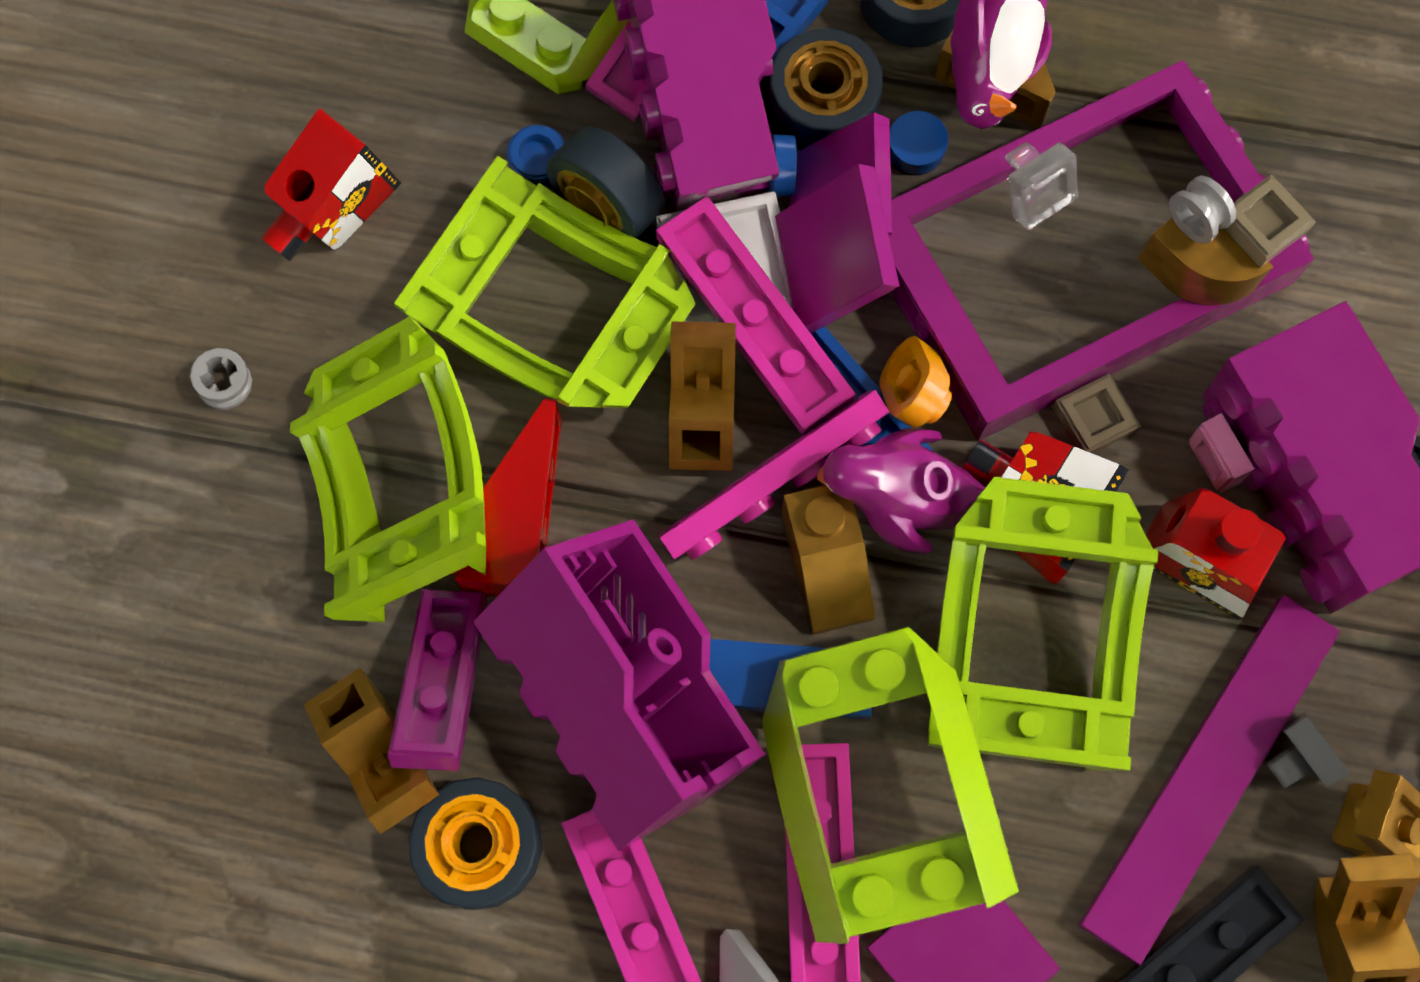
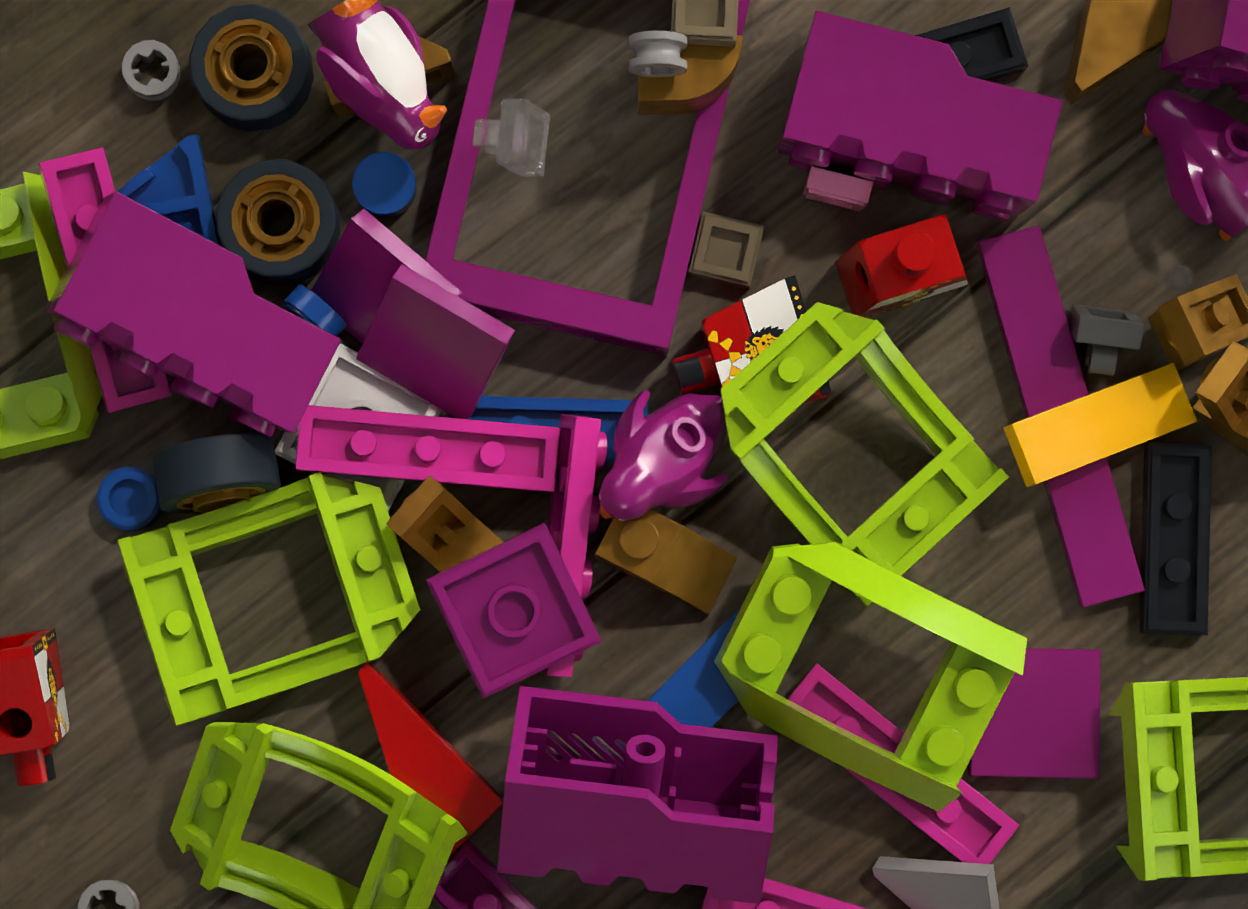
camera: 55 degrees left, 10 degrees up
(688, 467) = (513, 610): none -> magenta tile
(915, 383) = (589, 373): light orange plate -> none
(1237, 810) = (1099, 424): none -> yellow tile

